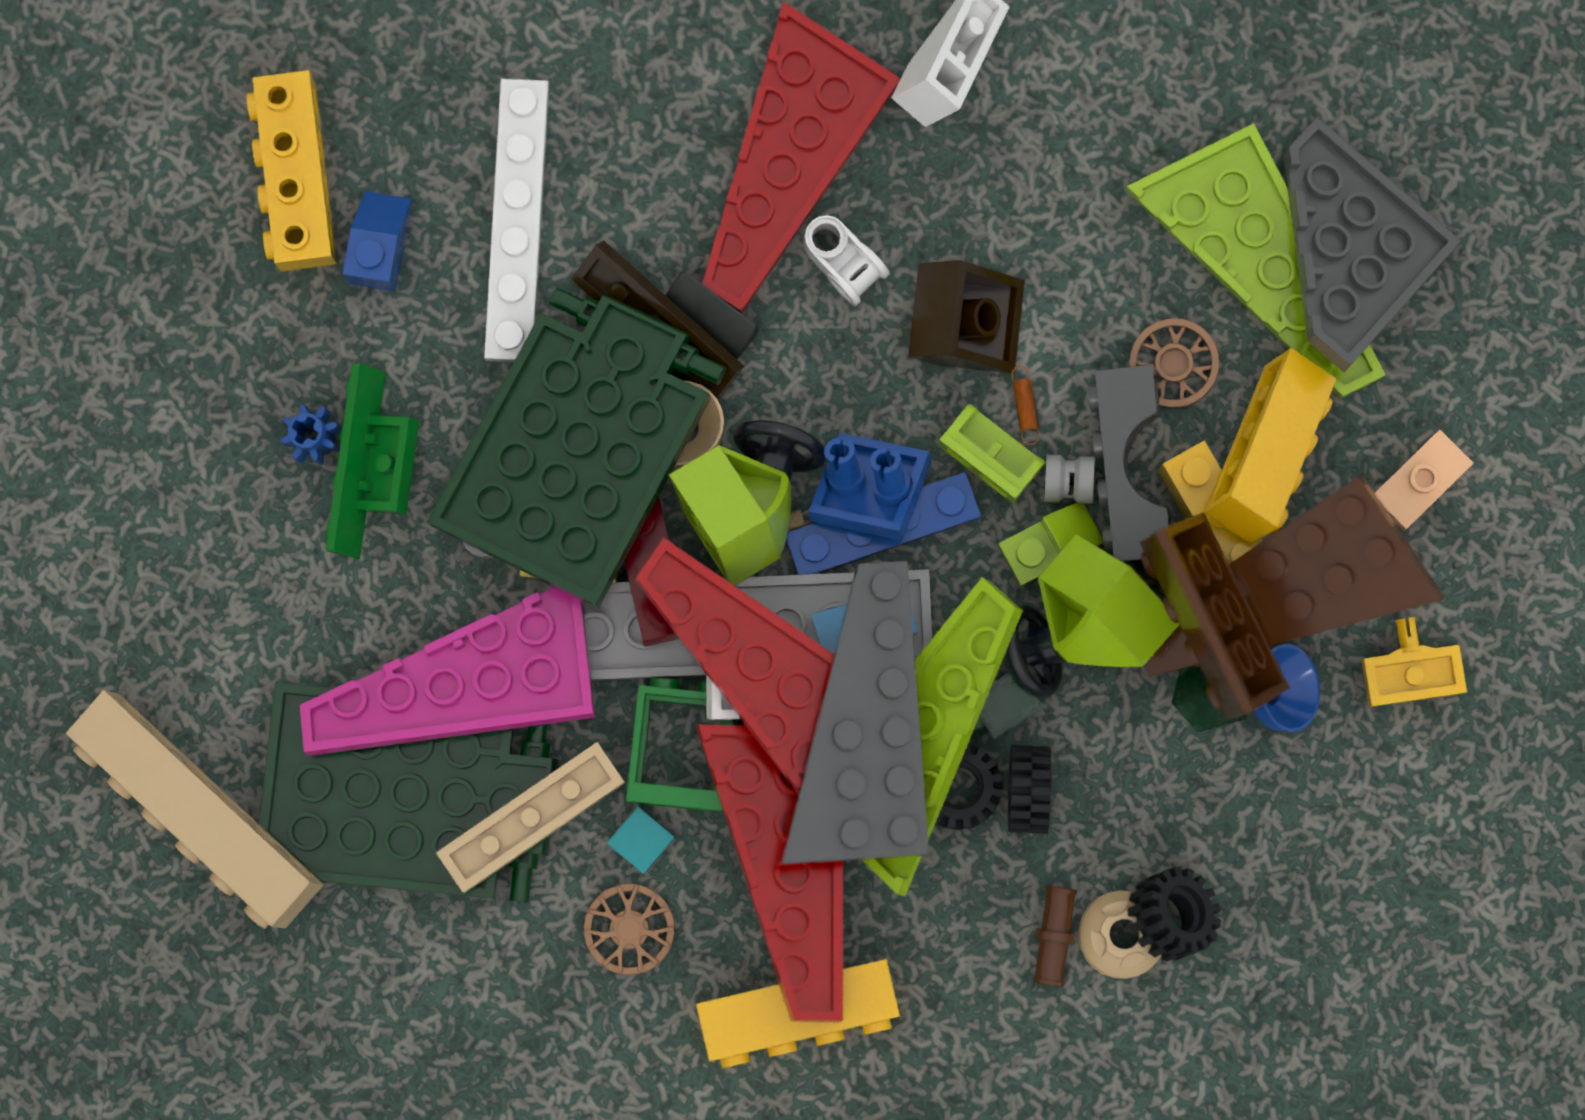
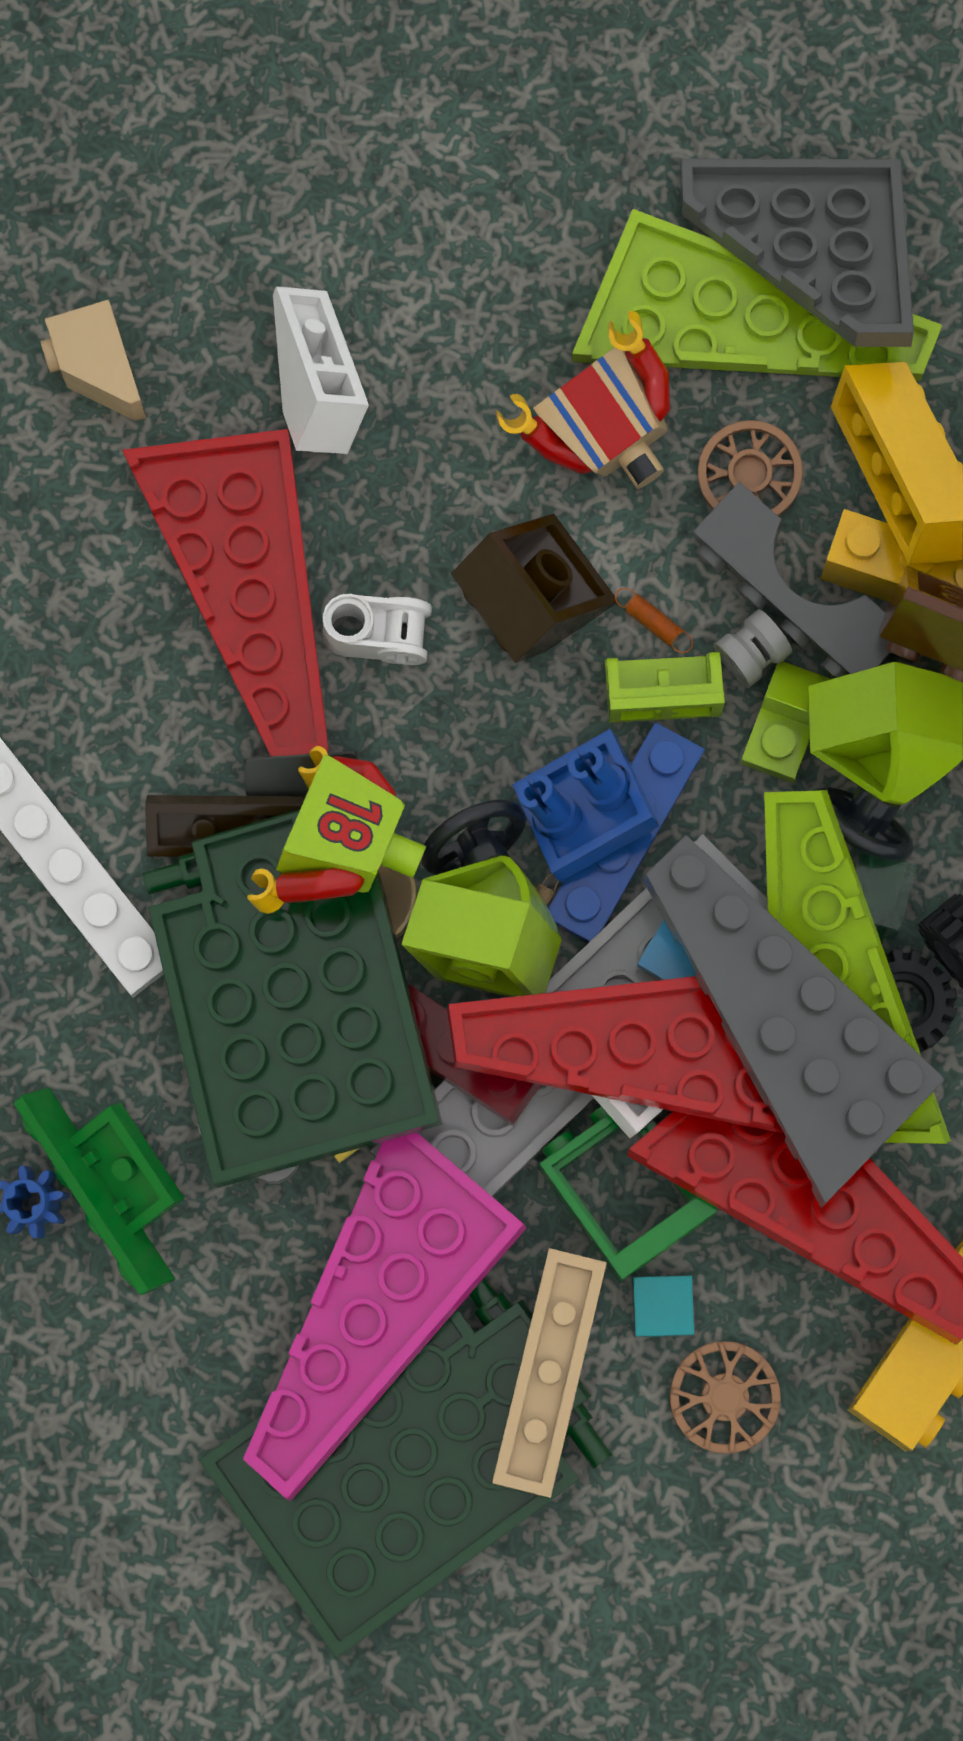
camera: 45 degrees left, 5 degrees down
(193, 810) = (228, 1649): tan brick -> none
(691, 372) = (339, 836): none -> torso
(1109, 243) = (604, 412): none -> torso

